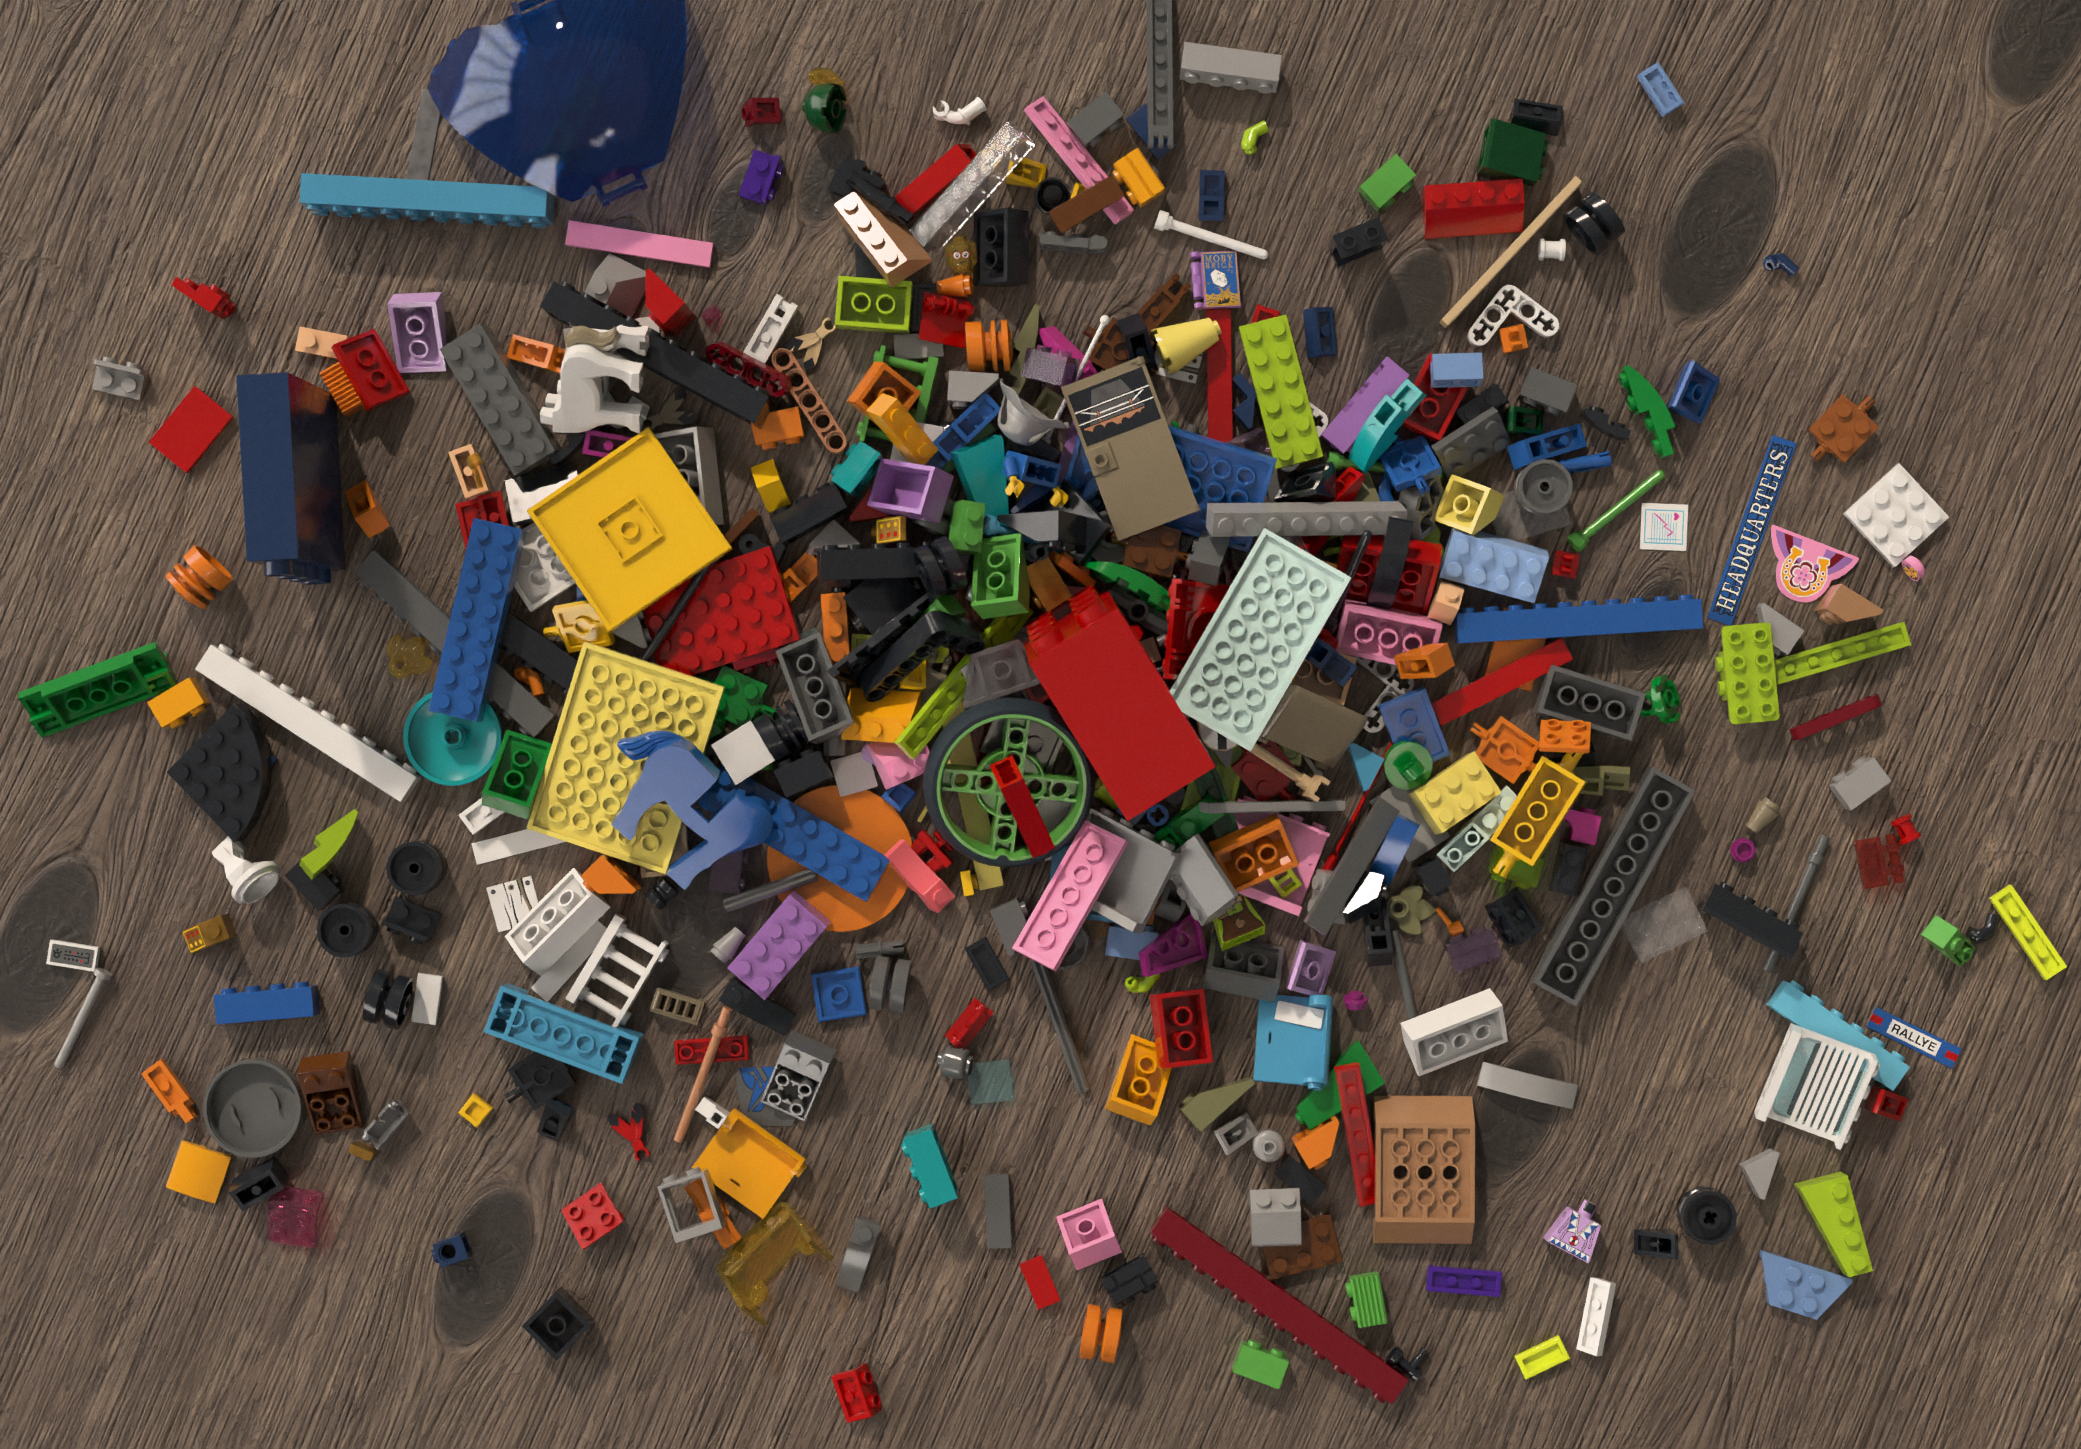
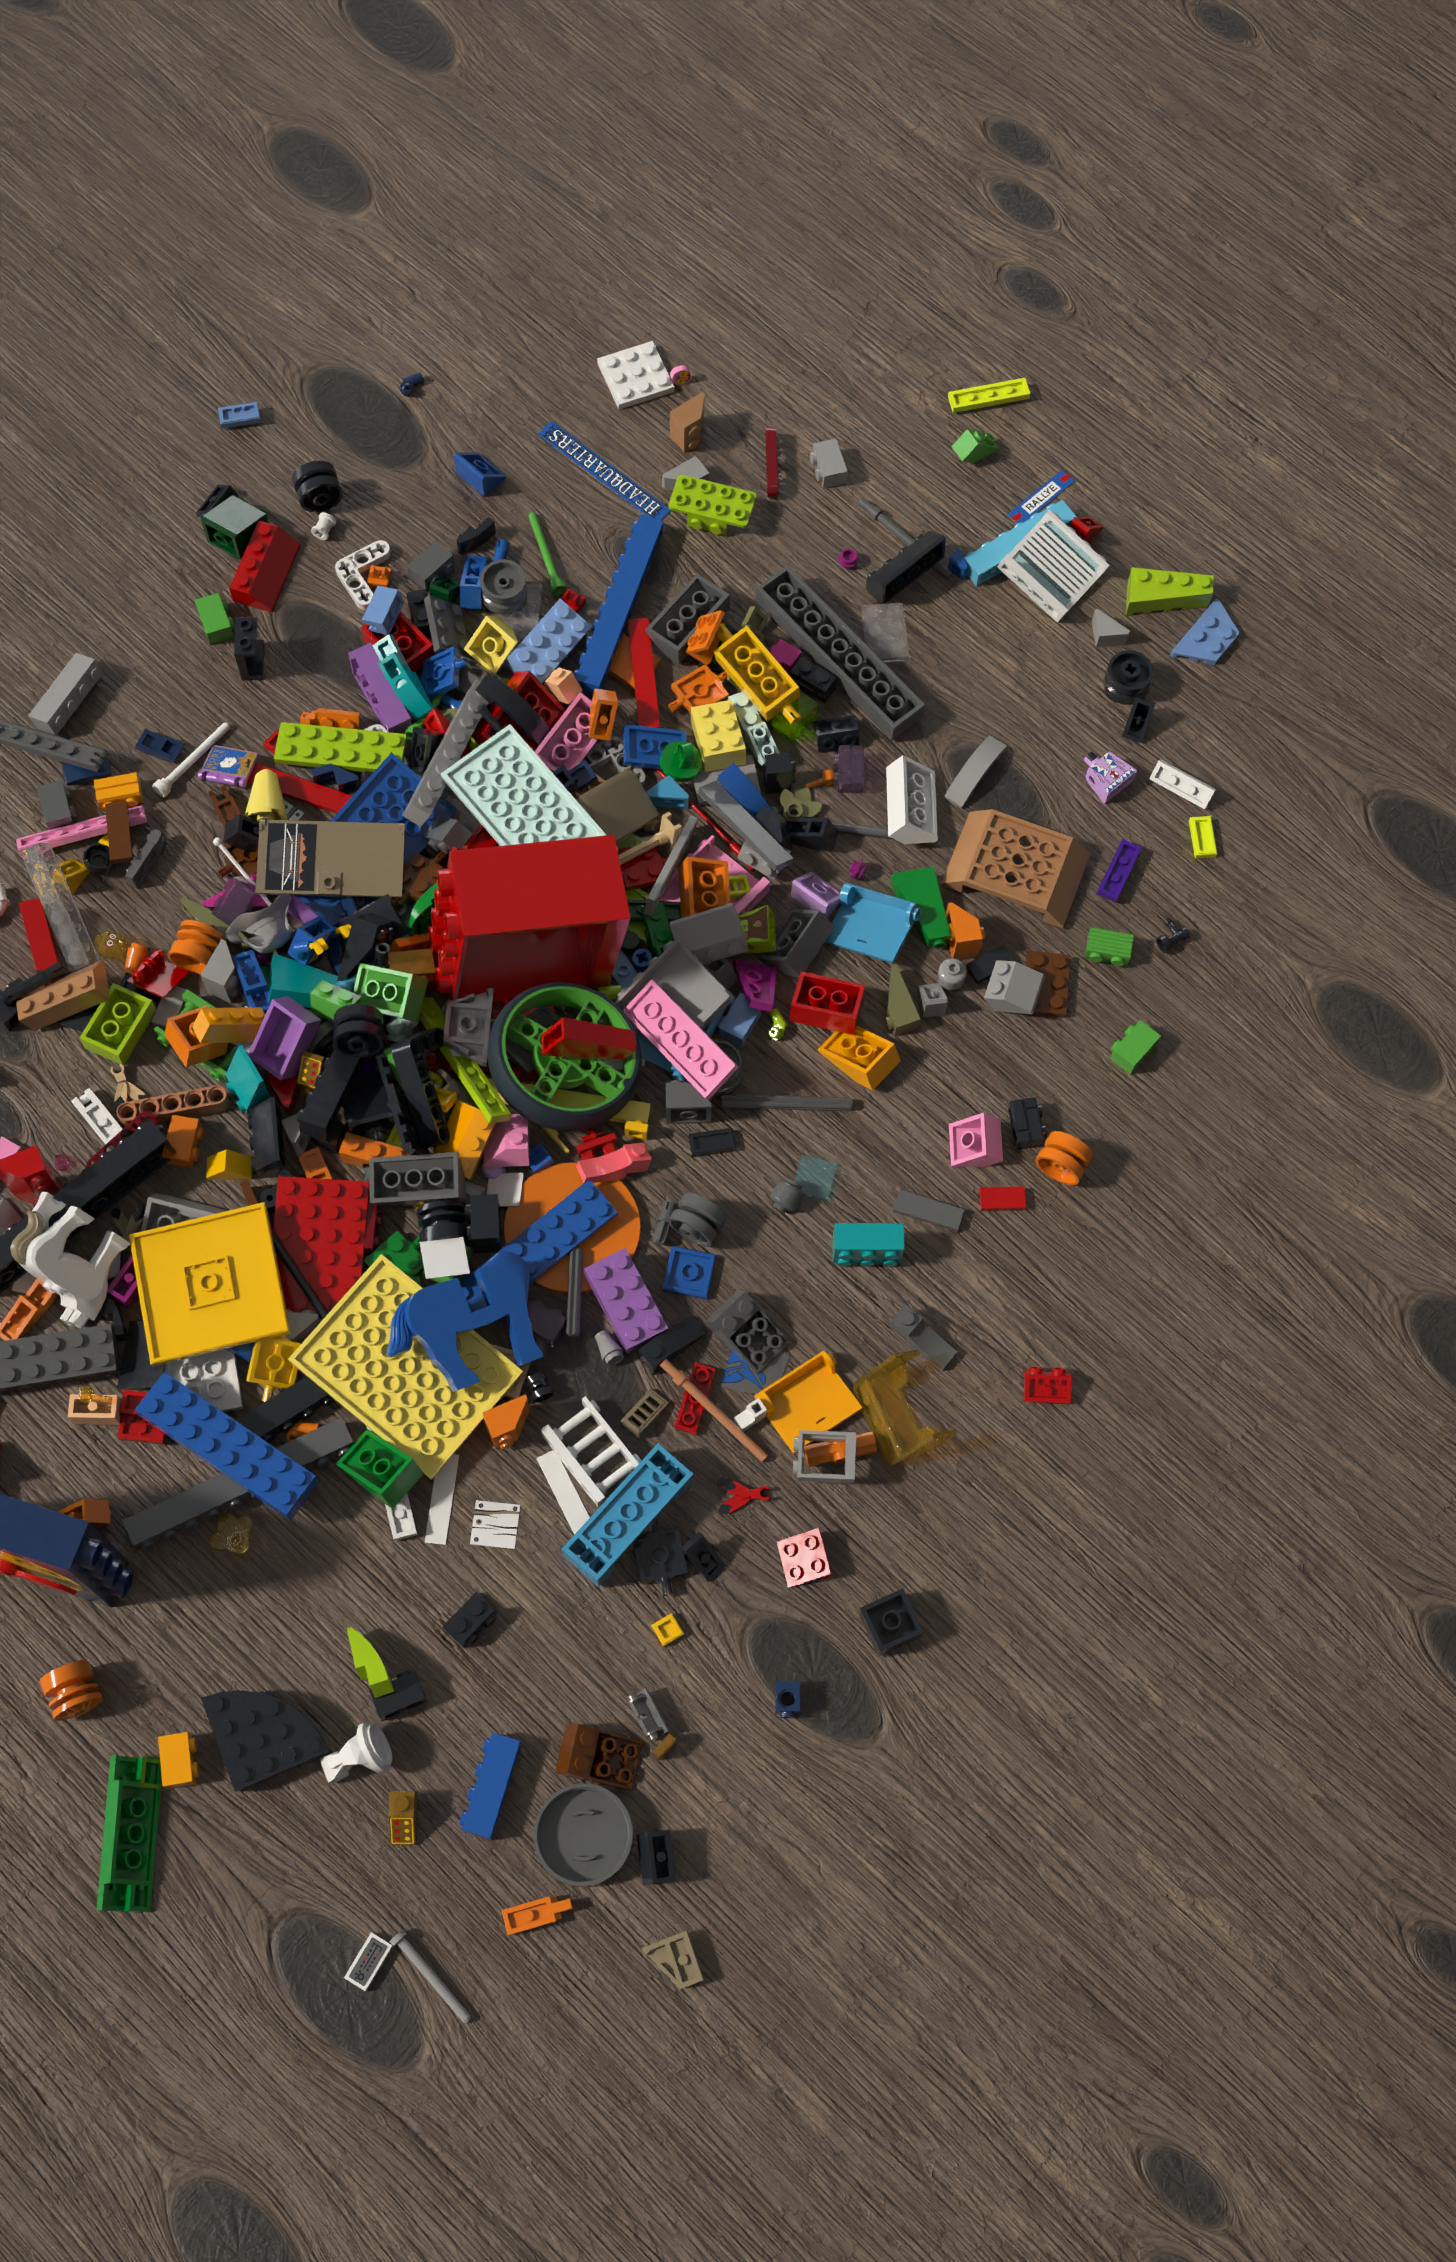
camera: 70 degrees left, 20 degrees down
(179, 1235) = (676, 1959): none -> dark tan wing
(198, 1171) = (623, 1916): light orange slope -> none
(294, 1216) = (702, 1838): clear pink bracket -> none
(307, 722) = (248, 1646): white brick -> none
(334, 923) = (455, 1694): black wheel -> none
(388, 999) = (535, 1660): black wheel -> none
(412, 881) = (417, 1581): black wheel -> none
(427, 998) = (548, 1634): white tile -> none
(450, 747) = (328, 1521): teal dish -> none
(556, 923) = (526, 1488): white slope -> none
(969, 1024) = (757, 1174): red hinge -> none
(1001, 248) = (122, 912): black slope -> none
(1250, 137) = (128, 701): lime arm -> none
(1279, 1305) = (1088, 1016): dark red brick -> none
(1299, 1014) = (852, 914): white sticker -> none
(1311, 367) = (331, 718): none -> orange hinge
(1319, 332) = (298, 703): dark blue slope -> none
(1357, 1131) = (968, 900): red tile -> none
(1510, 252) = (311, 554): tan tile -> none
(1646, 400) = (471, 502): green slope -> none
(1664, 526) = (573, 528): white sticker -> none
(1664, 700) = (708, 568): green tile -> none
(1763, 814) = (824, 532): dark tan cone -> none
(1781, 976) = (957, 564): none -> blue slope
(1806, 565) = (647, 445): sticker -> none
(1841, 652) = (724, 439): lime plate -> none
(1842, 428) = (554, 386): dark orange plate -> none
(1872, 863) = (894, 476): clear red plate -> none
(1905, 828) = (880, 446): red bush -> none
(1986, 932) = (976, 419): black arm -> none

